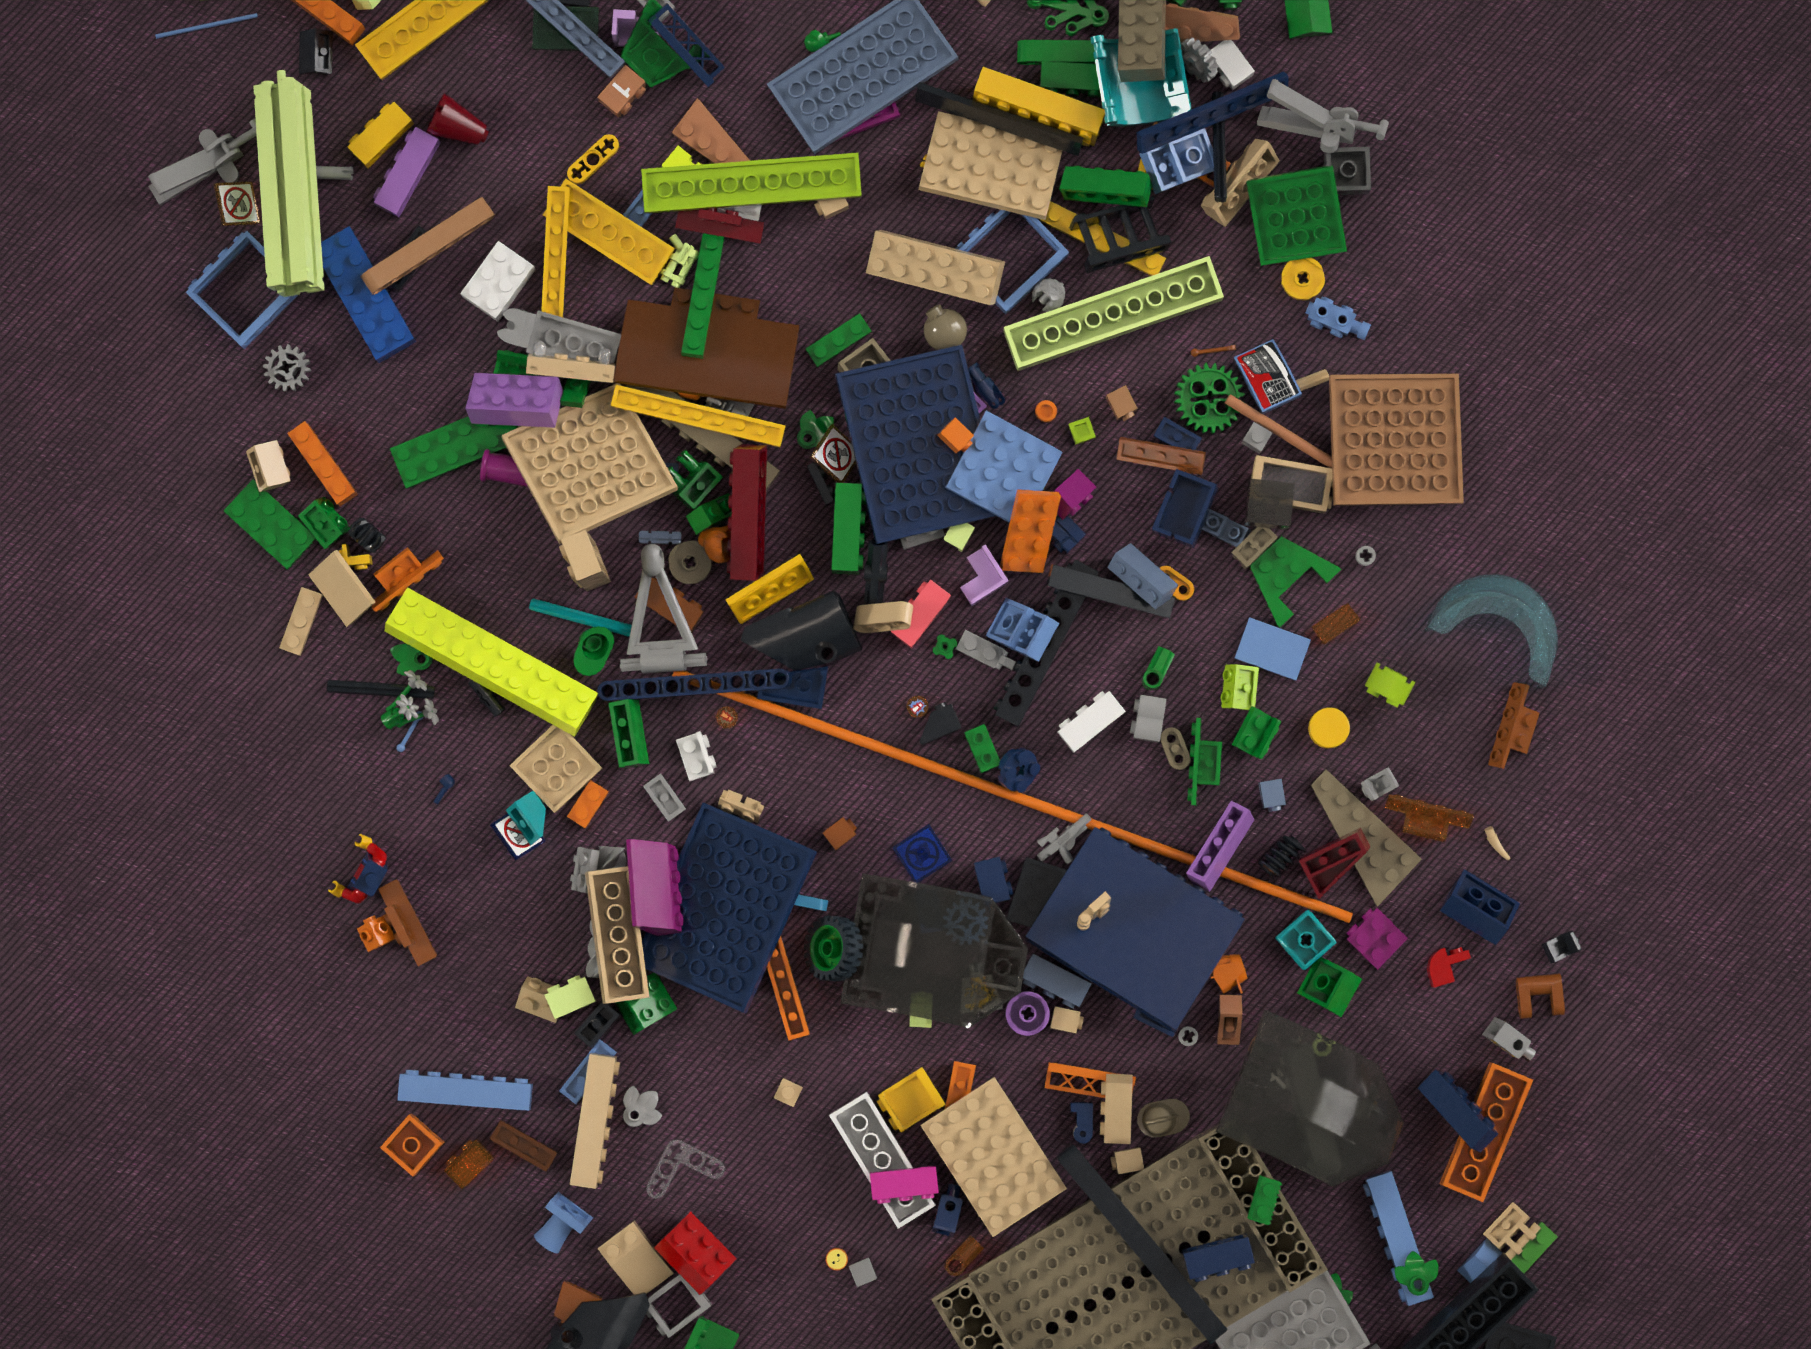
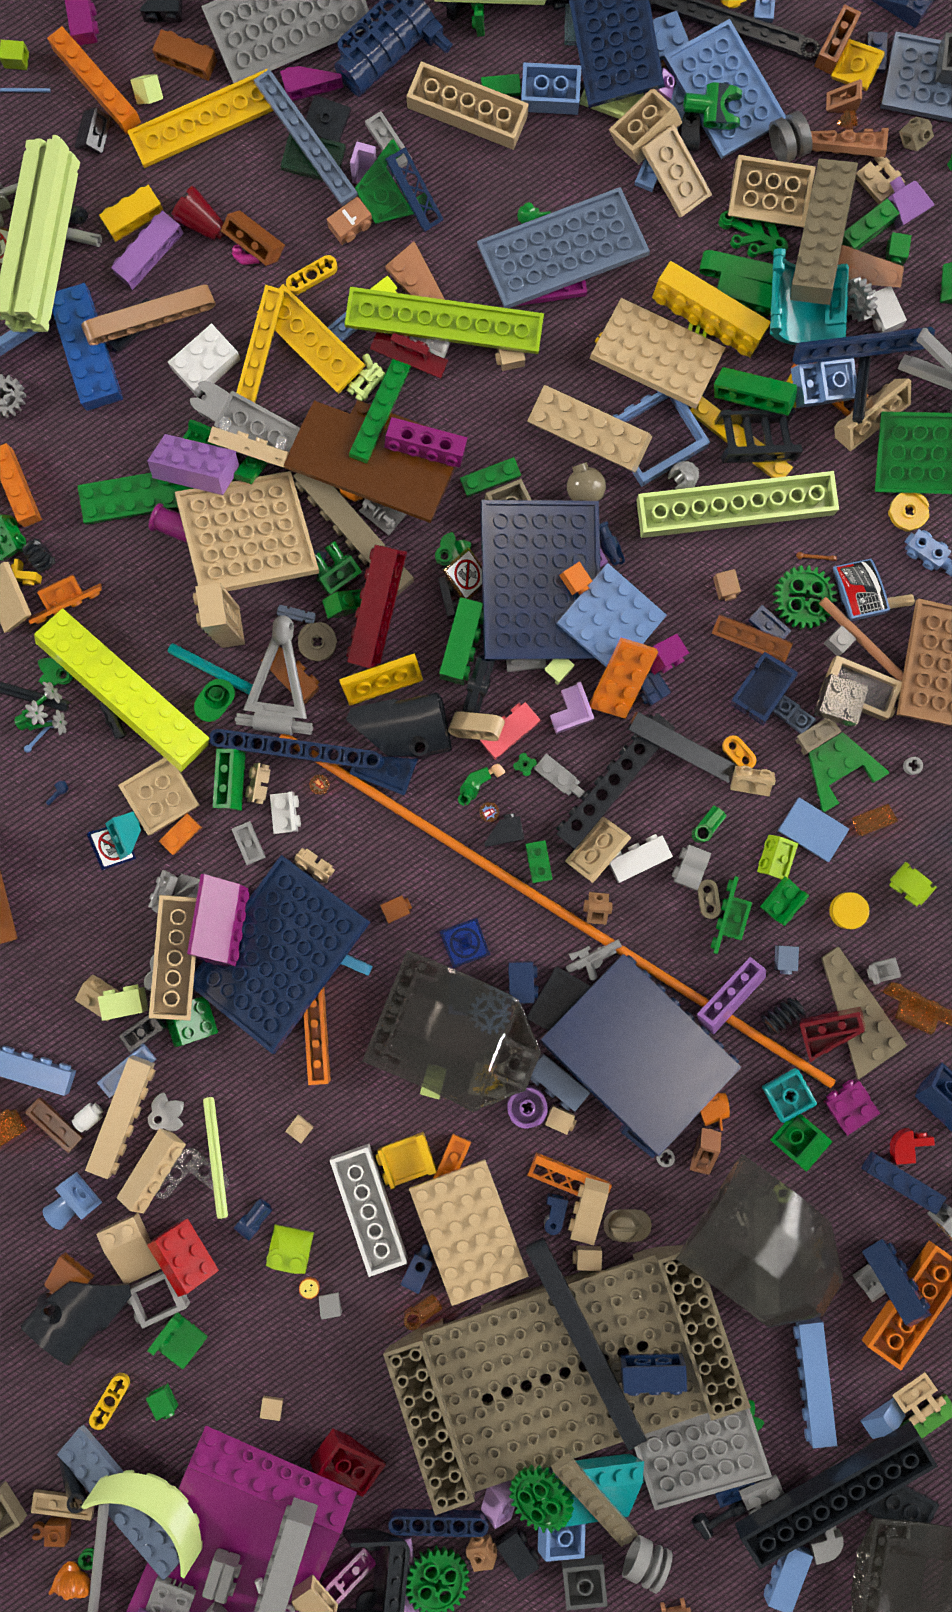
camera: 10 degrees right, 0 degrees up
(322, 149) = (78, 215): none -> black plate
(513, 156) = (242, 257): none -> dark pink arm
(520, 134) = (252, 237): none -> dark orange brick
(558, 1129) = (87, 1117): none -> white brick
(640, 1170) = (151, 1171): none -> tan brick
(658, 740) = (255, 790): none -> tan hinge
(698, 416) = (351, 513): yellow plate -> none
(705, 1141) = (215, 1158): none -> yellowish green axle
(715, 543) = (342, 628): orange hair -> none
(758, 1203) = (250, 1223): none -> dark blue piece
(769, 314) = (425, 442): none -> magenta brick
(806, 1222) = (289, 1249): none -> lime slope
(833, 948) = (366, 1011): black wheel -> none
(893, 678) = (471, 786): none -> green arm
(904, 1184) = (382, 1239): dark pink brick -> none
(999, 119) = (673, 313): black tile -> none
(1022, 629) = (597, 764): medium blue slope -> none
(1028, 769) = (562, 896): dark blue plate -> none
(1043, 721) = (598, 849): none -> tan plate
(1046, 411) = (658, 578): orange tile -> none
(1057, 784) = (597, 908): none -> medium nougat brick
(1081, 430) = (686, 602): lime tile -> none
(1096, 908) = (612, 1030): tan plate -> none
(1142, 576) = (714, 740): sand blue brick -> none
(1195, 610) = (752, 780): none -> tan bracket
(1264, 1200) = (707, 1334): green brick -> none
(1415, 1270) = (827, 1418): green plate -> none
(1433, 1120) = (869, 1282): none -> light grey bracket
(1447, 1006) = (903, 1183): none -> dark blue arch

